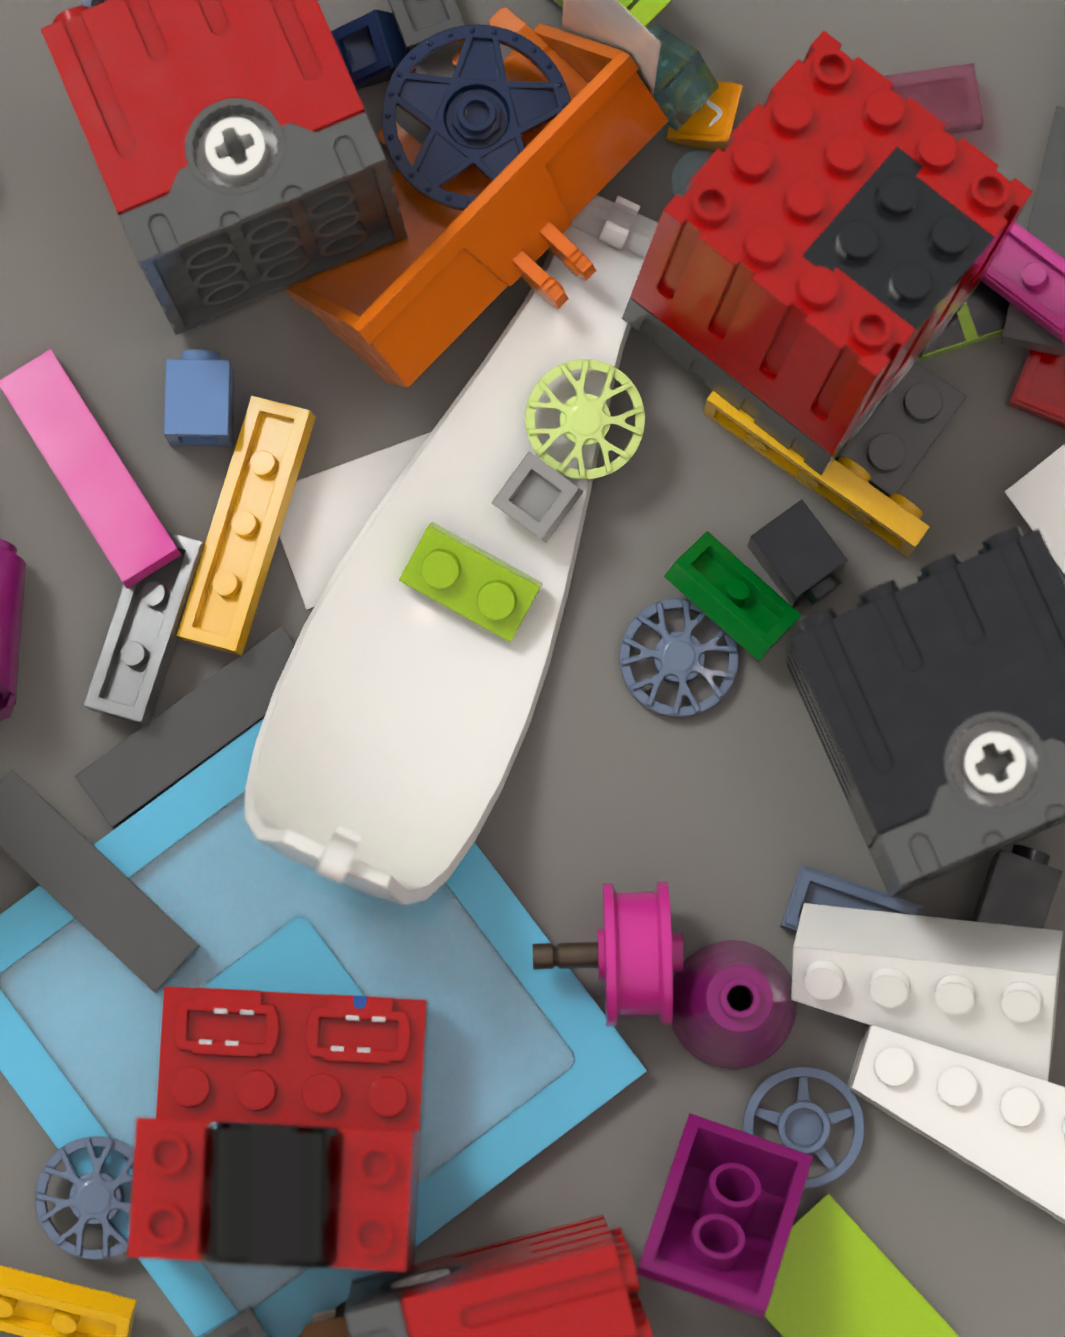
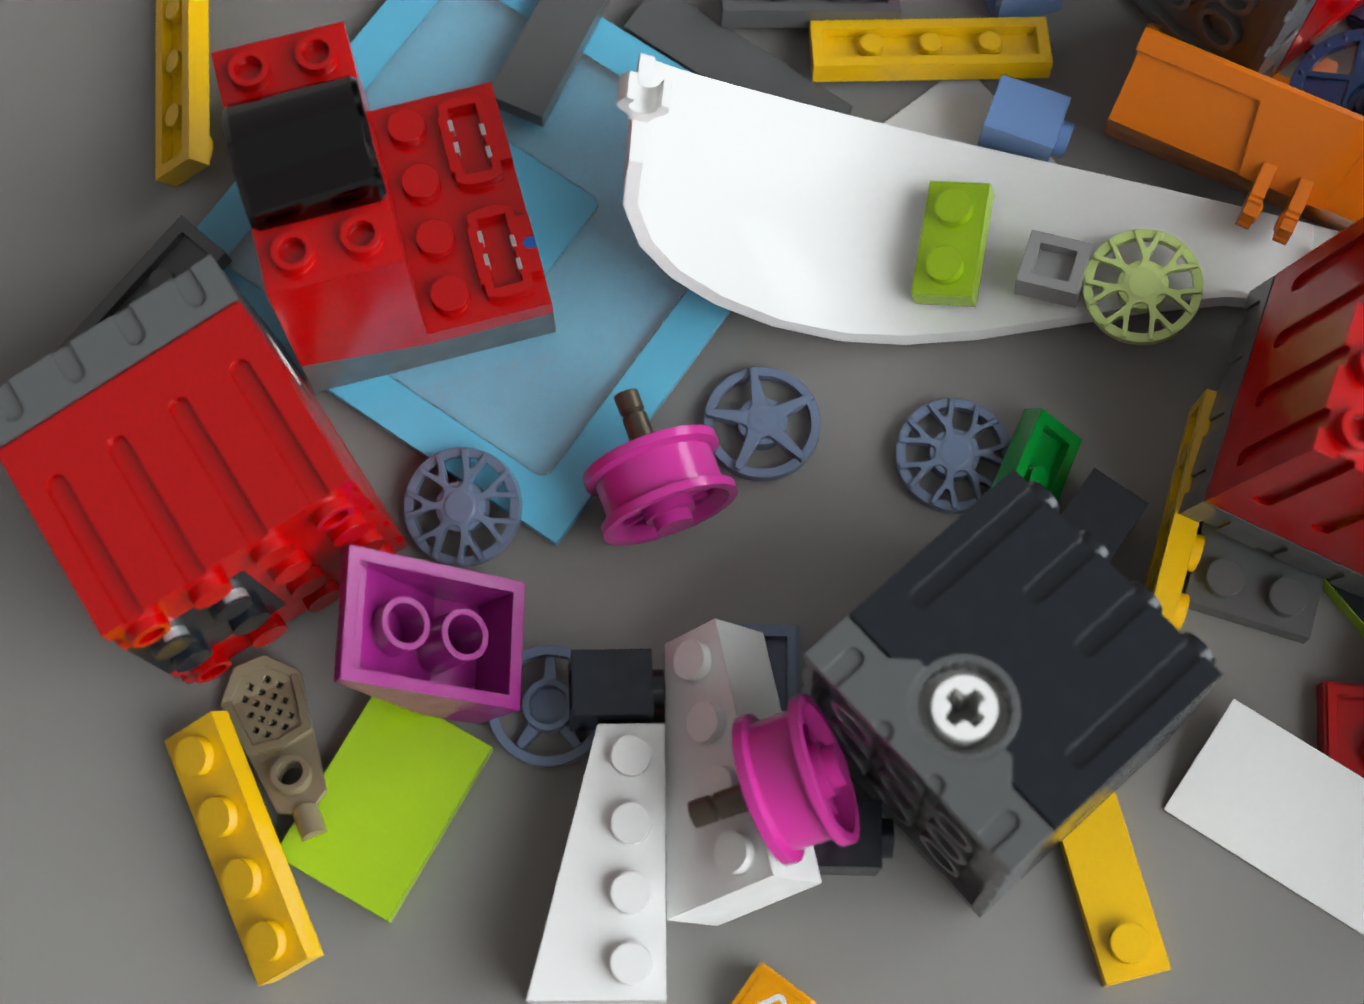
camera: 70 degrees right, 10 degrees down
(366, 462) = (1027, 121): none -> medium blue brick
(581, 1150) = (462, 506): none -> sand blue wheel
(586, 830) = (763, 422): none -> sand blue wheel
(708, 1023) = (643, 597): magenta cone -> none
(819, 1061) = (613, 687): none -> black brick
(984, 932) = (789, 782): none -> dark pink wheel

